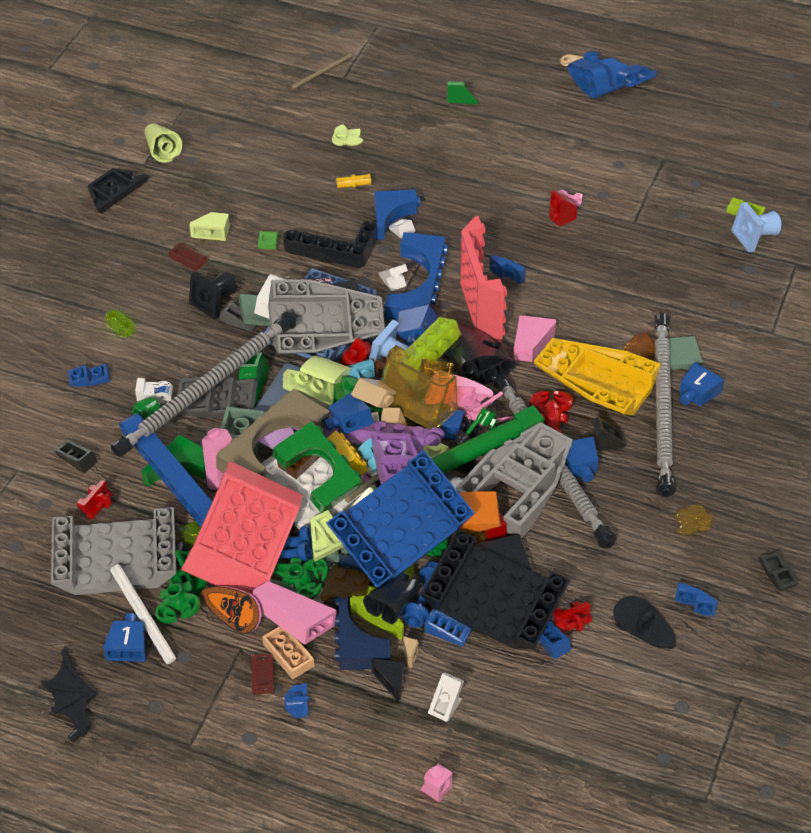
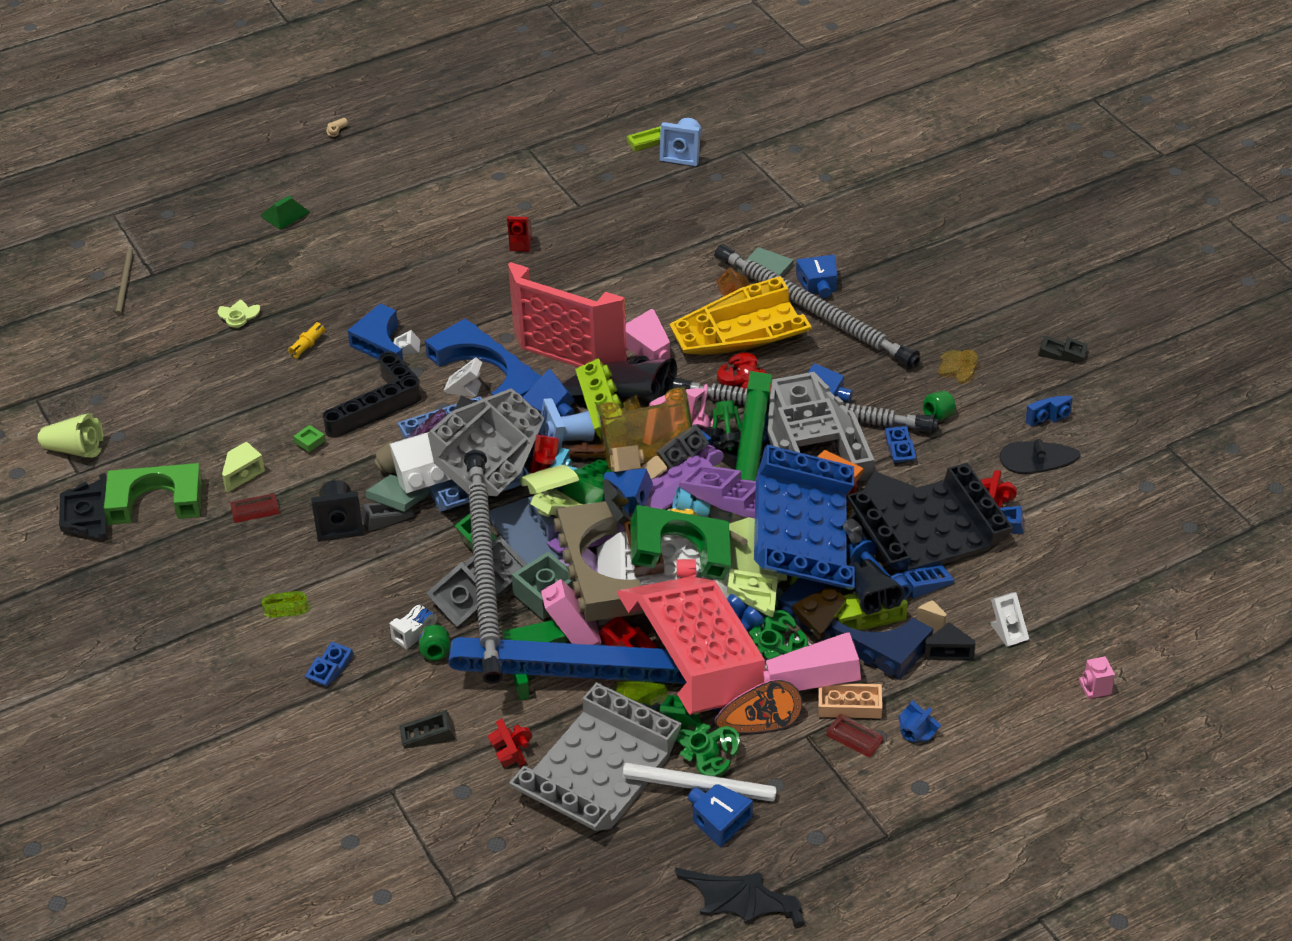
camera: 50 degrees left, 5 degrees down
(147, 190) = (128, 484): none -> bright green arch
(305, 486) = (686, 568): none -> coral hose
(323, 411) = (616, 501): none -> pearl dark grey slope
(421, 416) = (683, 445): none -> dark grey slope
(434, 554) = (853, 530): none -> flat silver piece
(570, 536) = (899, 444): none -> blue slope
(576, 199) = (499, 226): bright pink arm -> none
(603, 76) = (386, 121): blue panel -> none
(607, 435) = (815, 356): pearl dark grey slope -> none
(631, 533) = (939, 403): none -> green head

